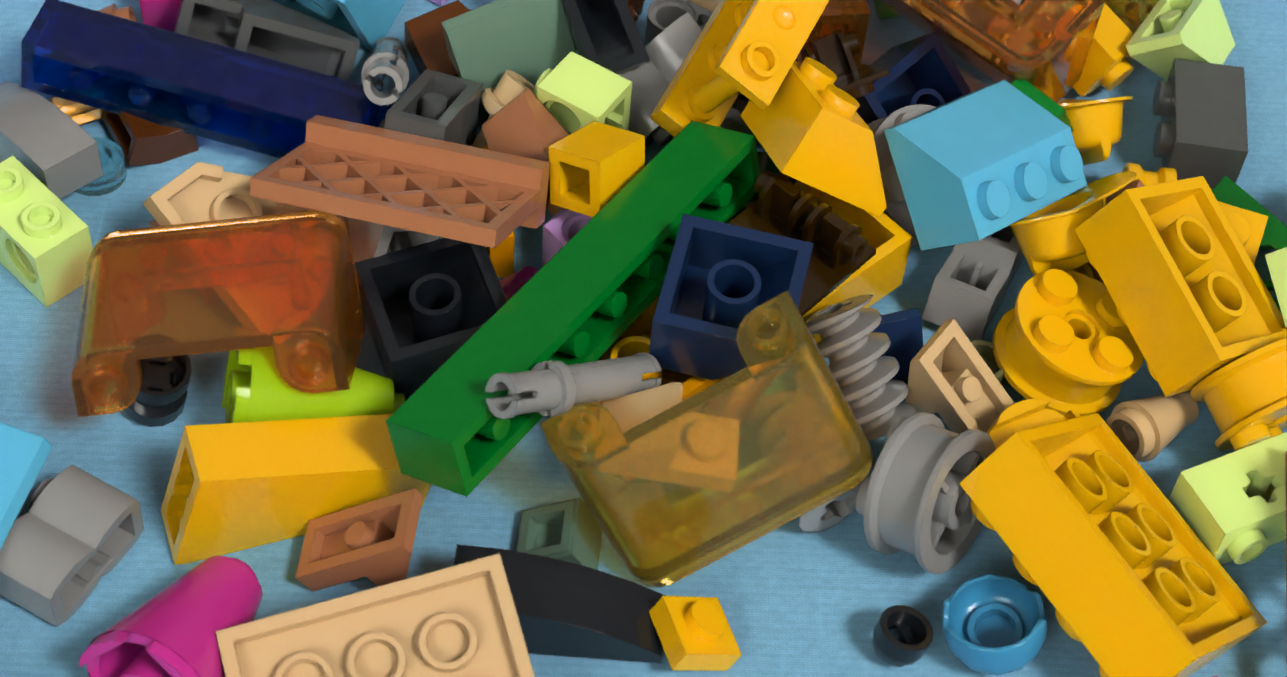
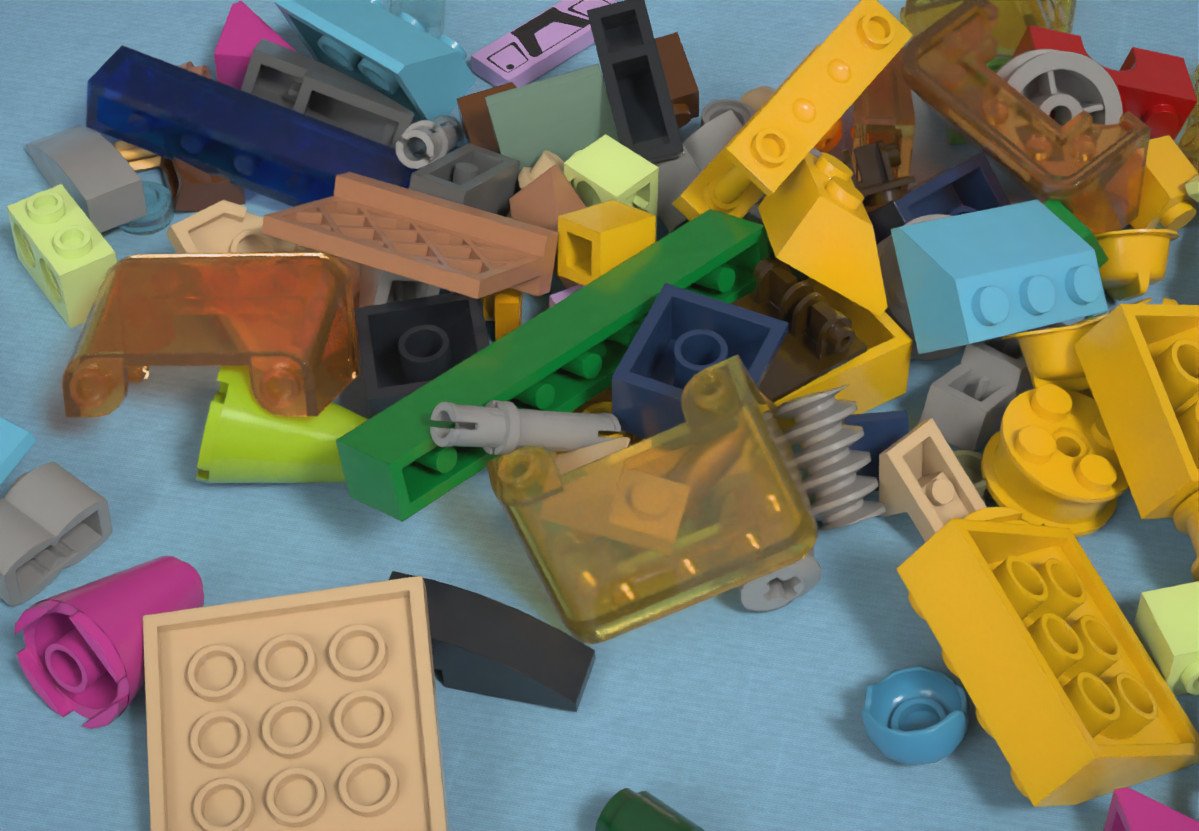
camera: 15 degrees right, 5 degrees down
(170, 380) = (152, 404): black wheel -> none
(268, 478) = (244, 499): yellow slope -> none
(361, 542) = (310, 559): nougat slope -> none
(561, 532) = (507, 579): sand green slope -> none
(695, 633) = (613, 686): yellow plate -> none
(901, 635) = (829, 710): black hinge -> none
(916, 492) = (852, 583): light grey wheel -> none
(1152, 422) = (1131, 548): tan cone -> none

